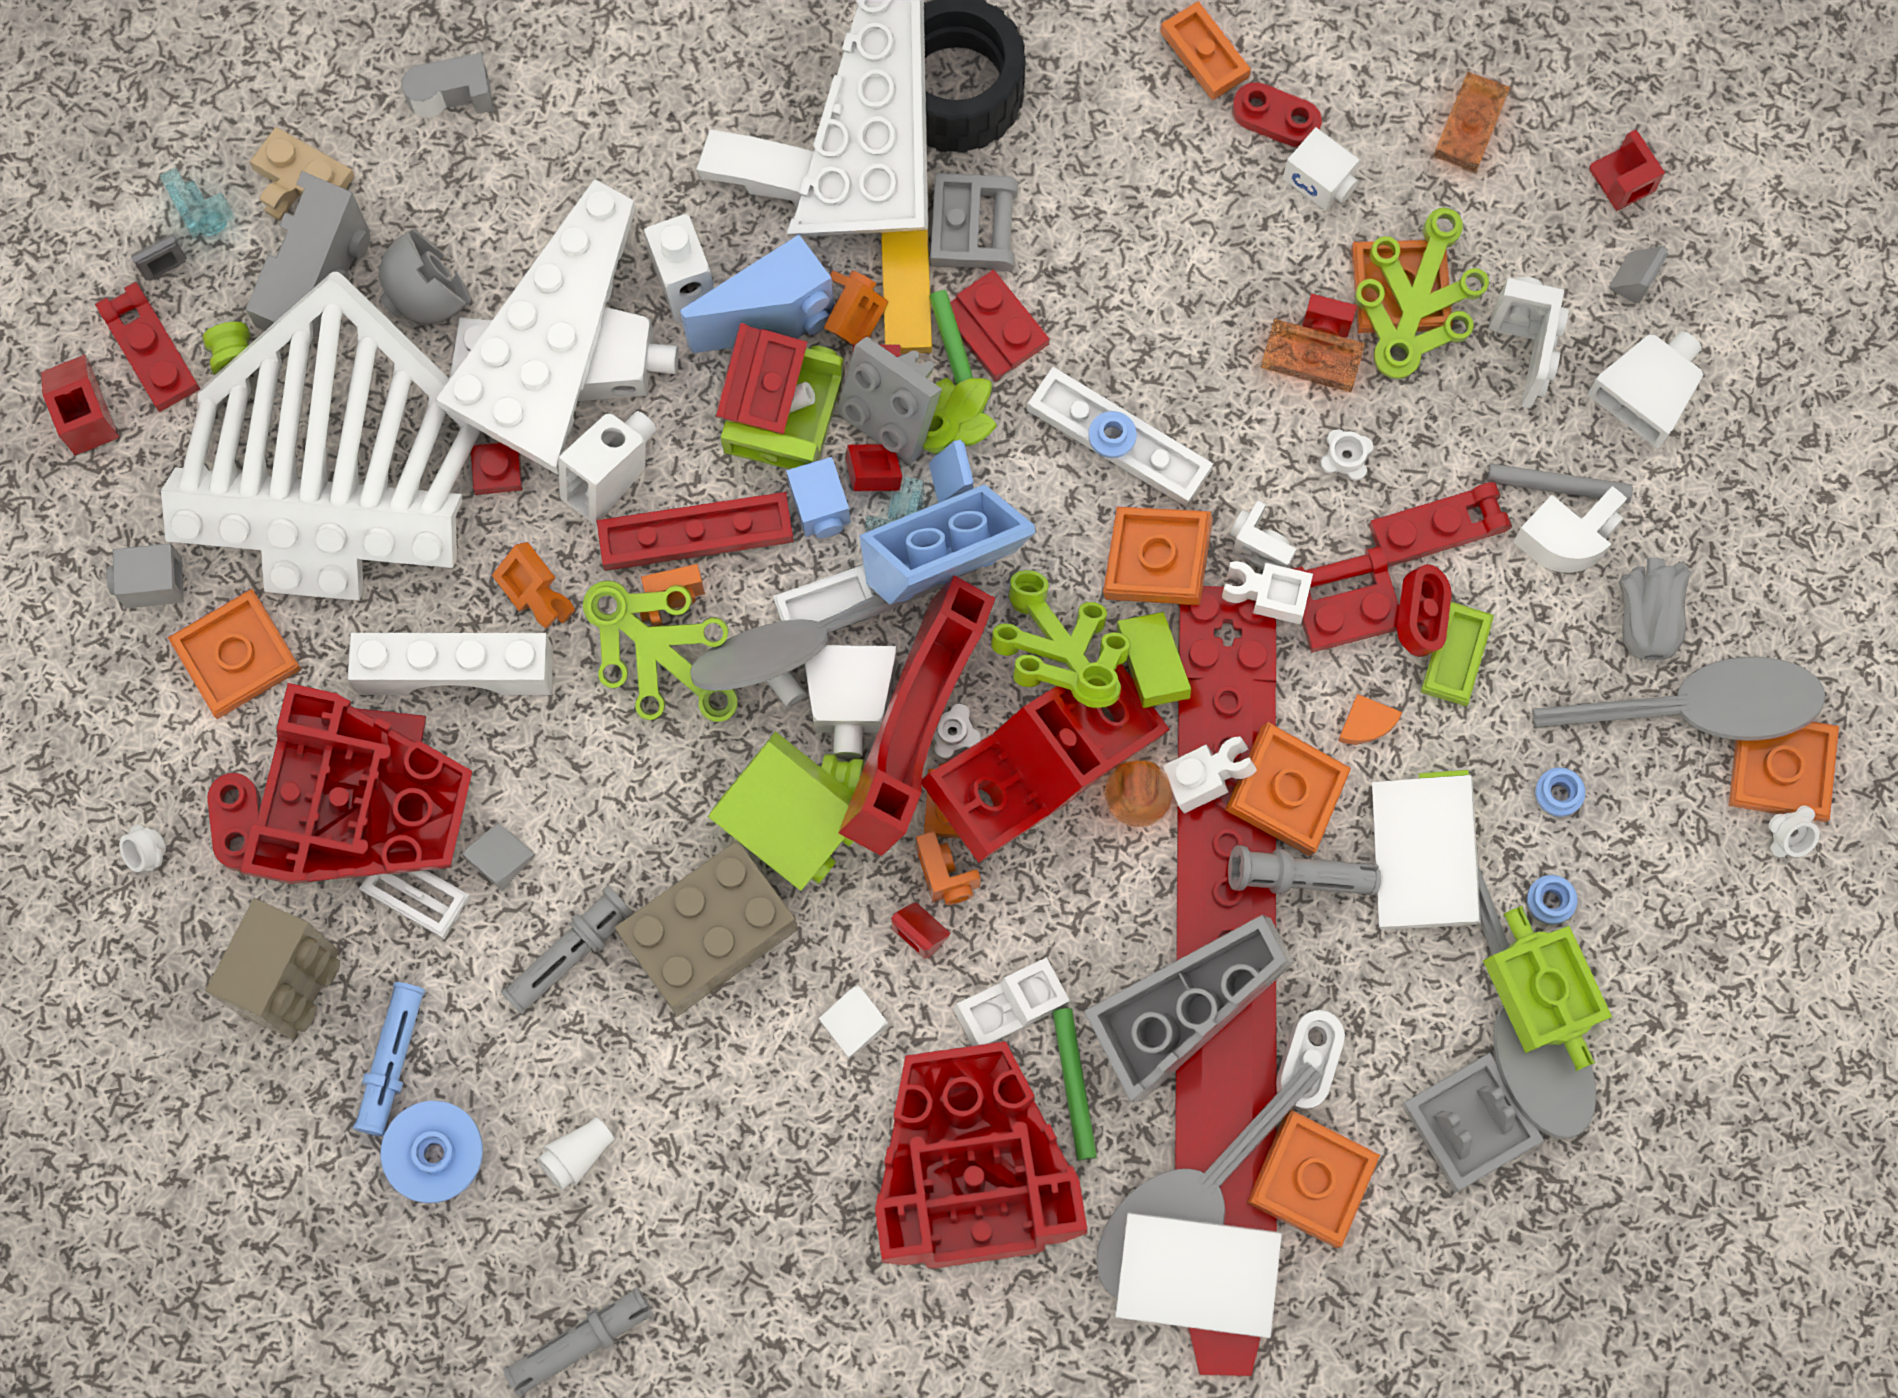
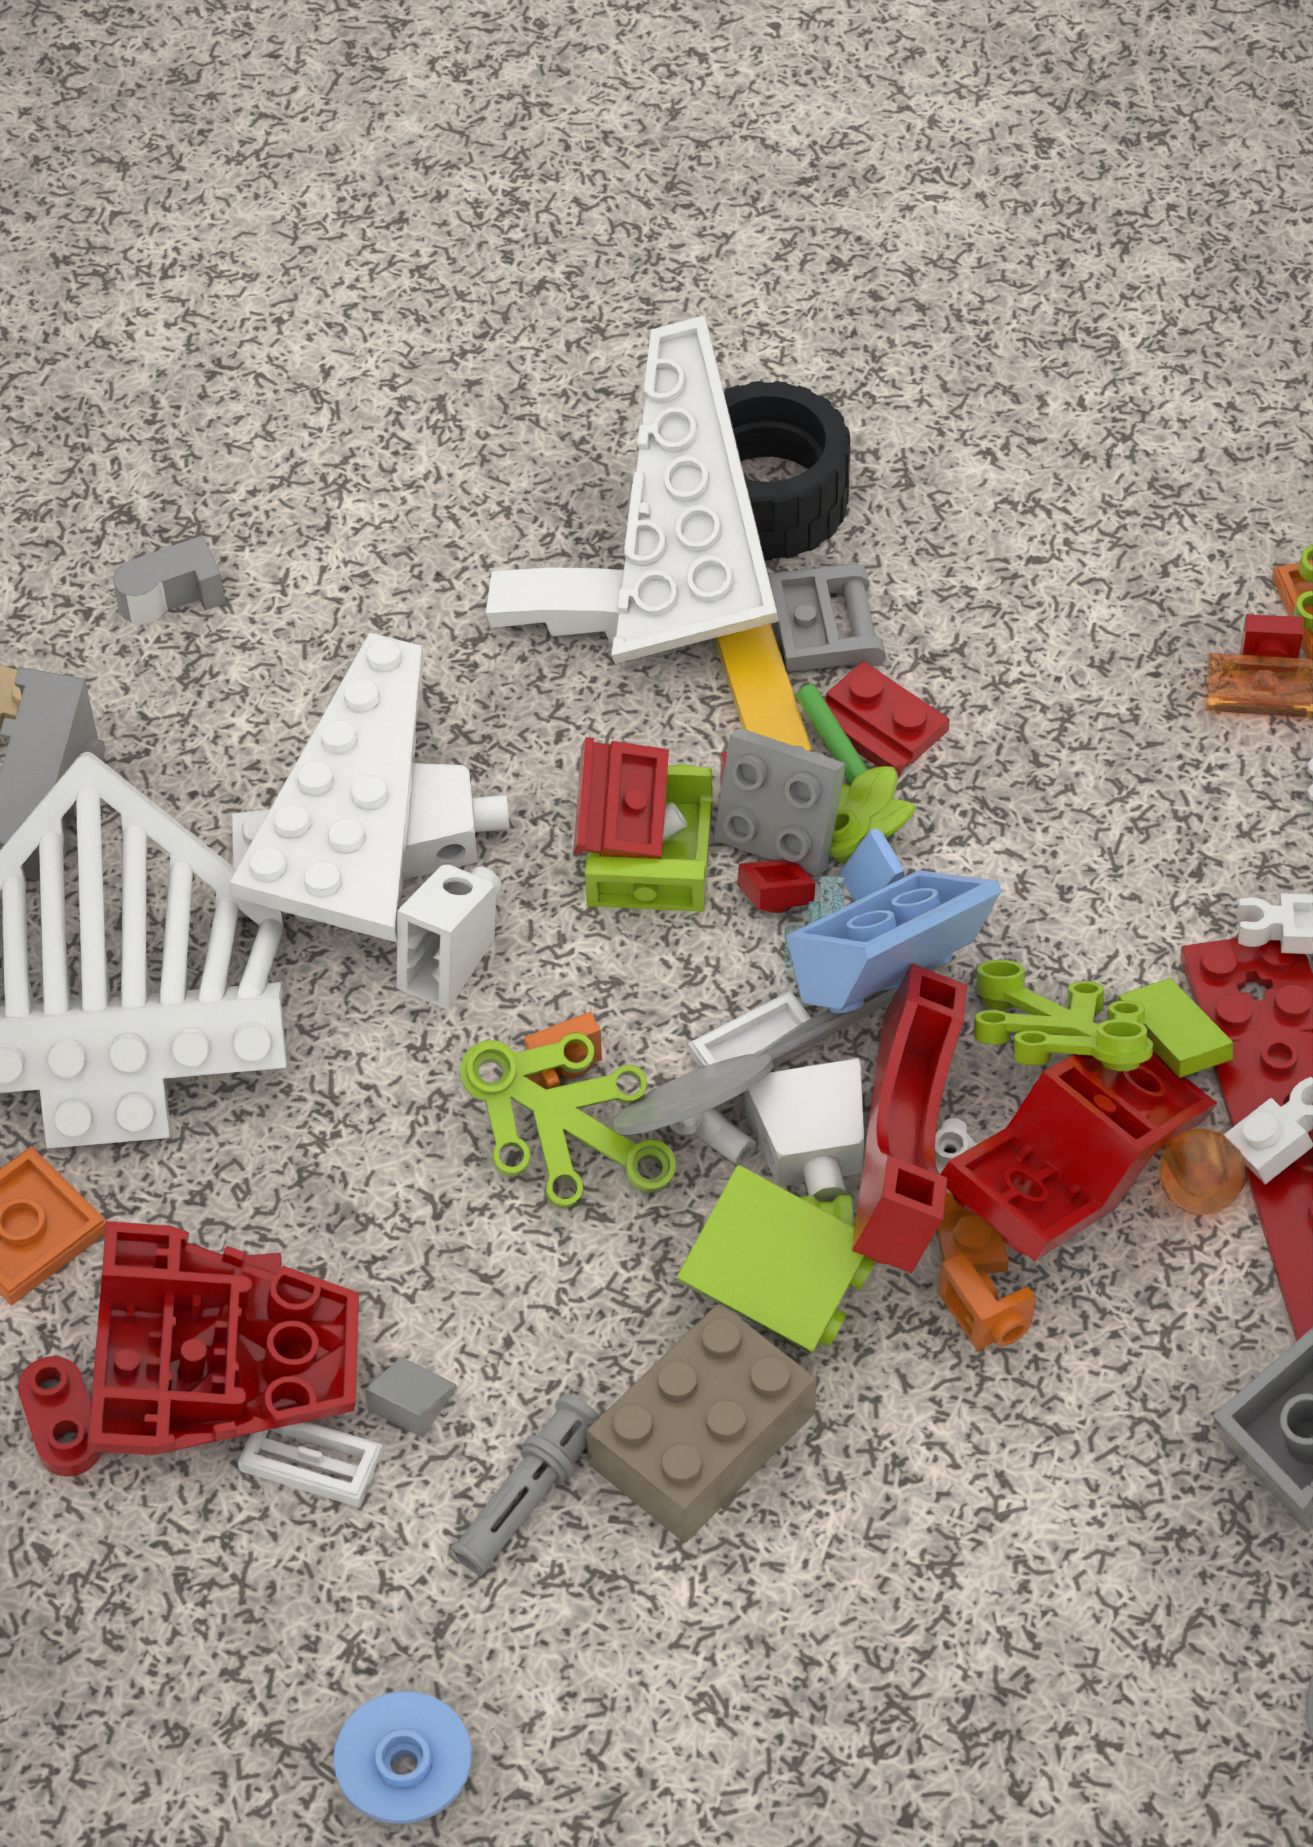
camera: 10 degrees left, 20 degrees down
(274, 970) = (156, 1553): dark tan brick -> none
(389, 1059) = (318, 1683): light blue pin -> none
(419, 282) = (178, 777): light grey cylinder -> none
(481, 660) = (238, 1187): white arch -> none
(495, 469) = (311, 966): red plate -> none
(527, 584) = (378, 1079): orange plate -> none
(573, 1154) = (590, 1728): white cone -> none
(678, 261) = (479, 696): white torso -> none
(694, 531) = (574, 986): red plate -> none
(777, 293) = (623, 698): light blue slope -> none
(819, 498) = (718, 925): light blue brick -> none
(854, 1021) = (917, 1500): white slope -> none
(856, 309) = (710, 721): orange bracket -> none
(919, 929) = (968, 1384): red slope -> none
(972, 1165) = (1124, 1636): red wedge -> none
(1011, 1004) = (1112, 1448): white slope -> none
(1074, 1084) = (1218, 1526): bright green bar -> none
(1112, 447) = (1054, 807): light blue plate -> none
(1153, 458) = (1063, 804): white plate -> none
(1158, 555) = (1146, 917): orange tile -> none
(1205, 50) = (1045, 410): orange plate -> none
(1260, 546) = (1261, 878): white bracket -> none
(1275, 115) = (1145, 461): red plate -> none
(1322, 170) = (1216, 500): white brick -> none

